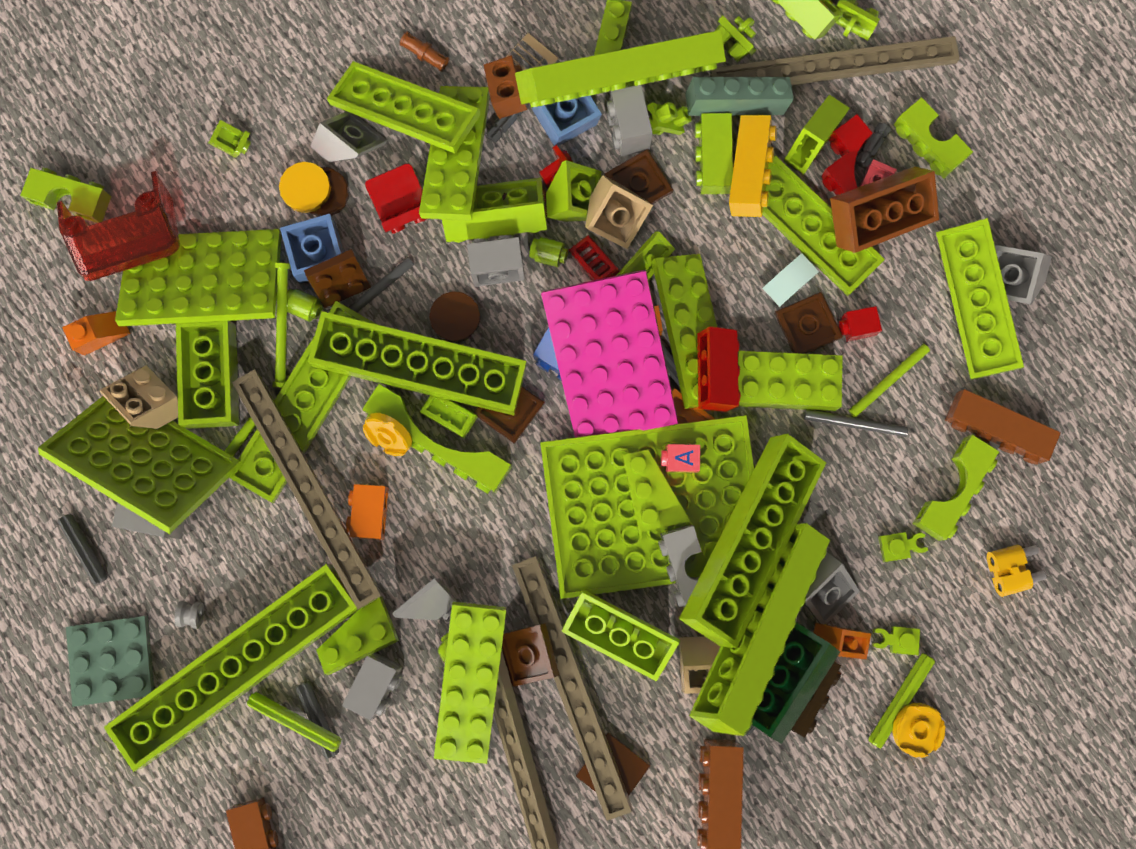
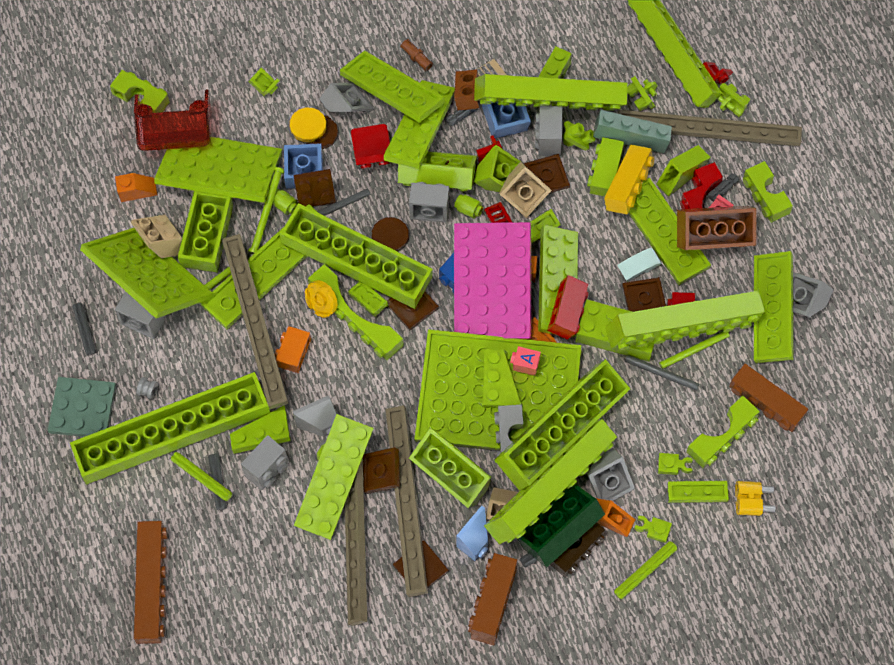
camera: 15 degrees right, 15 degrees down
(673, 716) = (473, 536): none -> light blue slope
(879, 356) = (684, 320): none -> lime brick
(918, 729) = (652, 592): yellow tile -> none
(942, 577) = (697, 491): none -> lime plate

